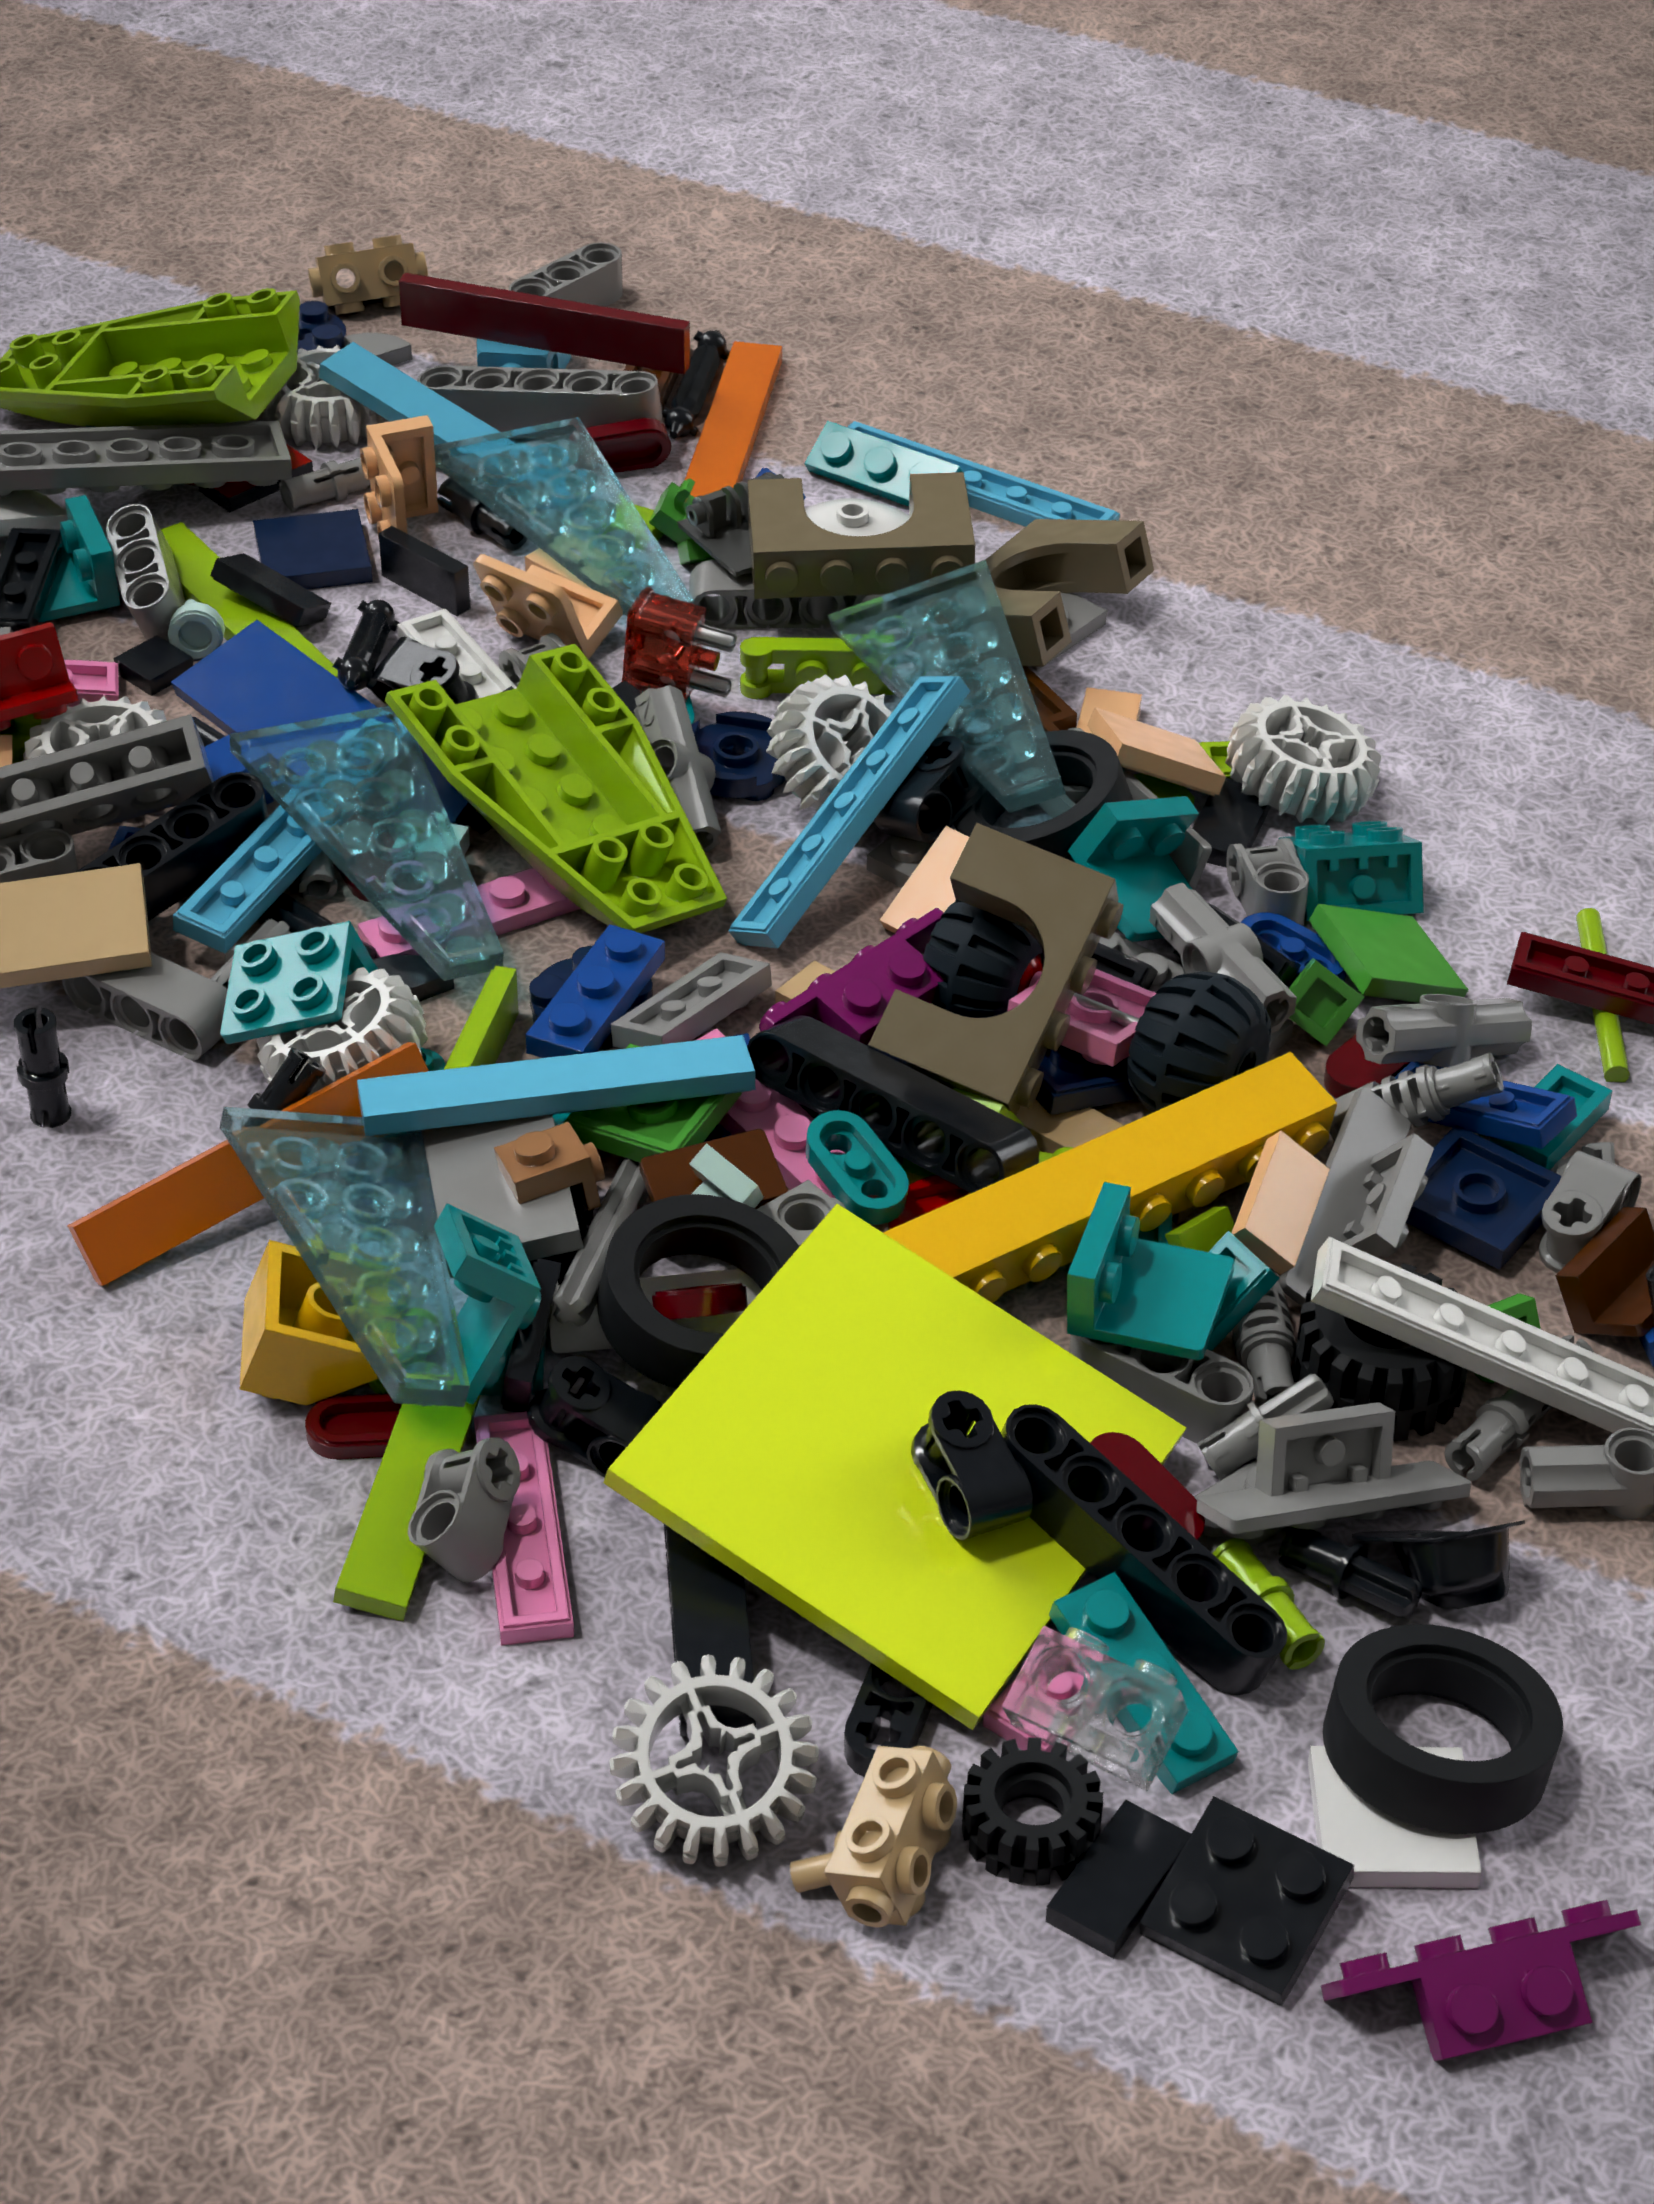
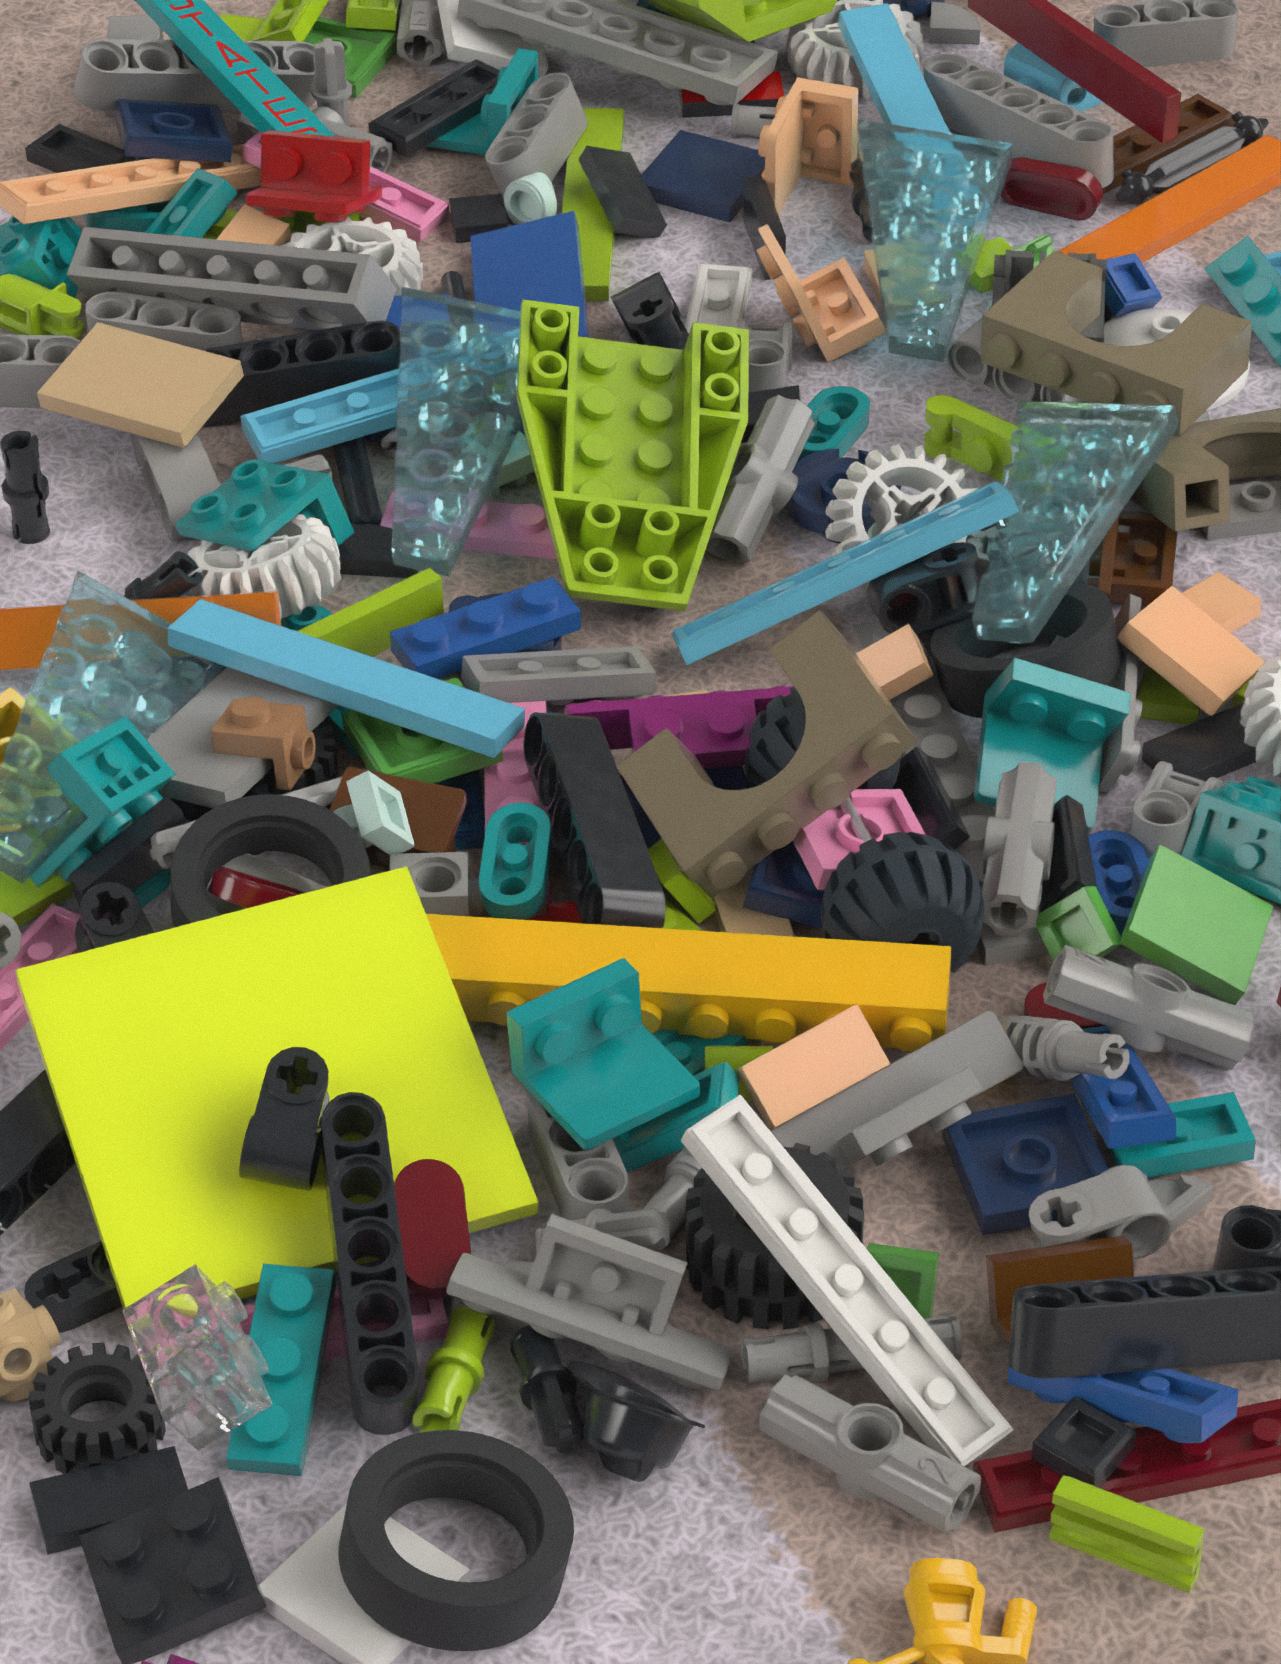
camera: 40 degrees right, 0 degrees up
(366, 645) = (624, 272): black wheel -> none
(667, 649) = (848, 371): clear red piece -> none

